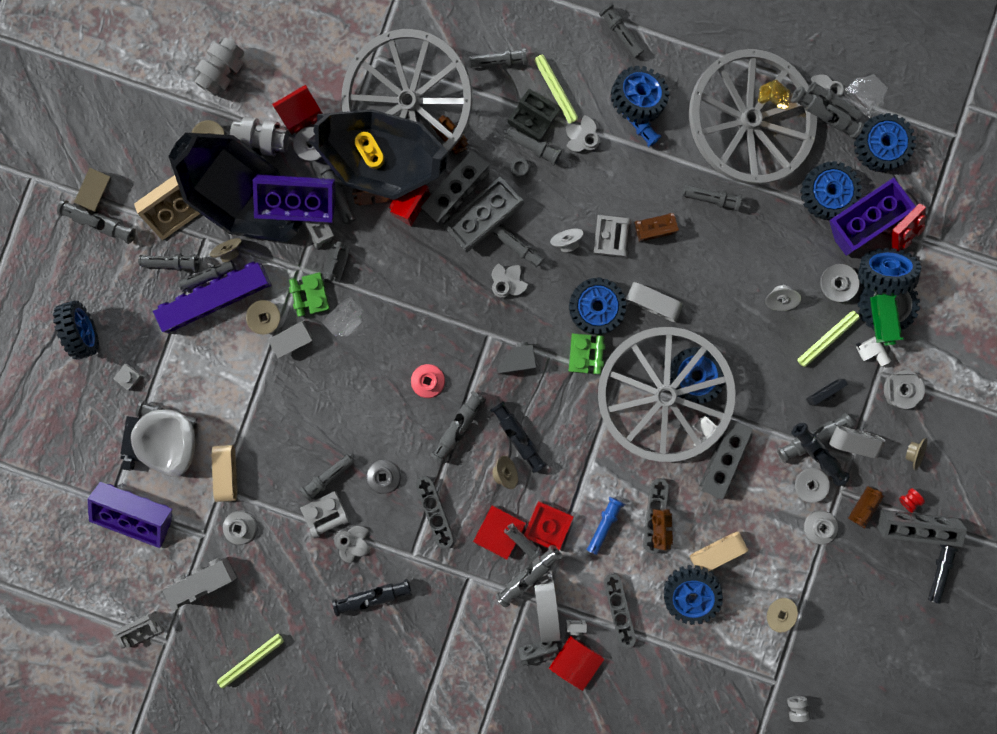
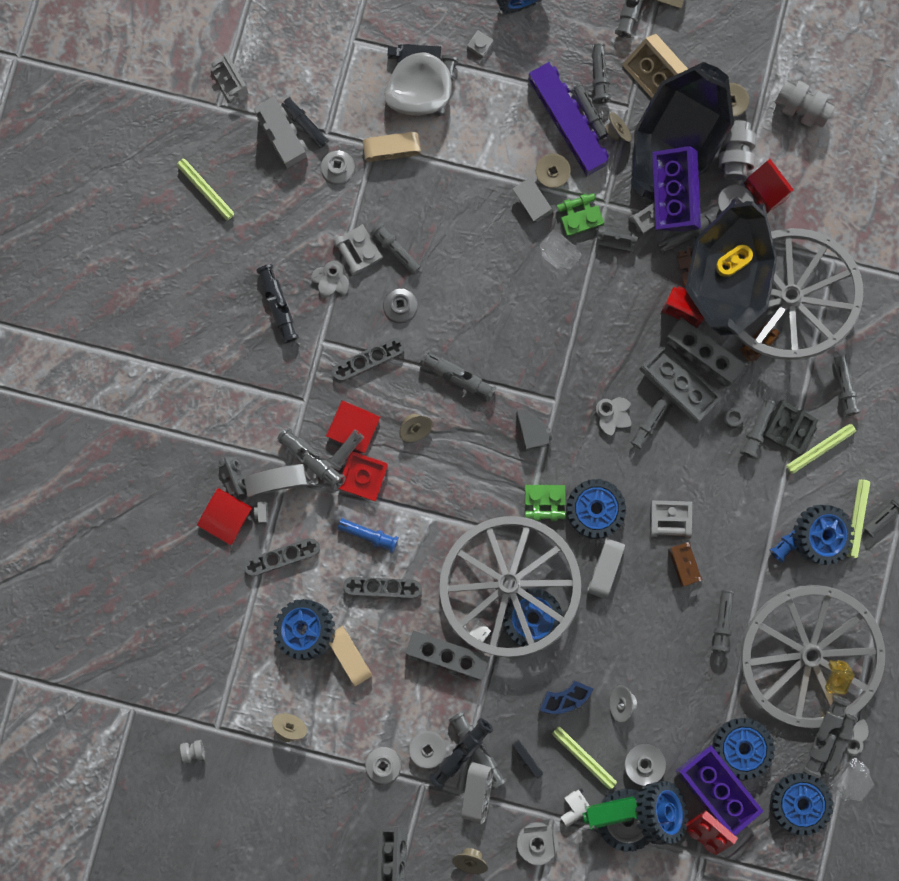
camera: 85 degrees right, 5 degrees down
(129, 514) = (343, 58): dark purple slope -> none
(194, 555) = (298, 115): none -> black pin
(436, 385) = (498, 350): coral piece -> none
(510, 426) = (456, 435): black piece -> none
(567, 239) = (662, 472): light grey piece -> none
(580, 134) = (776, 478): light grey plate -> none
(620, 60) = (858, 516): none -> yellowish green axle
(661, 519) = (378, 591): reddish brown hinge -> none
(776, 351) = (565, 700): none -> dark blue brick
(866, 507) = (408, 811): reddish brown hinge -> none
(912, 500) = (419, 859): red wheel -> none

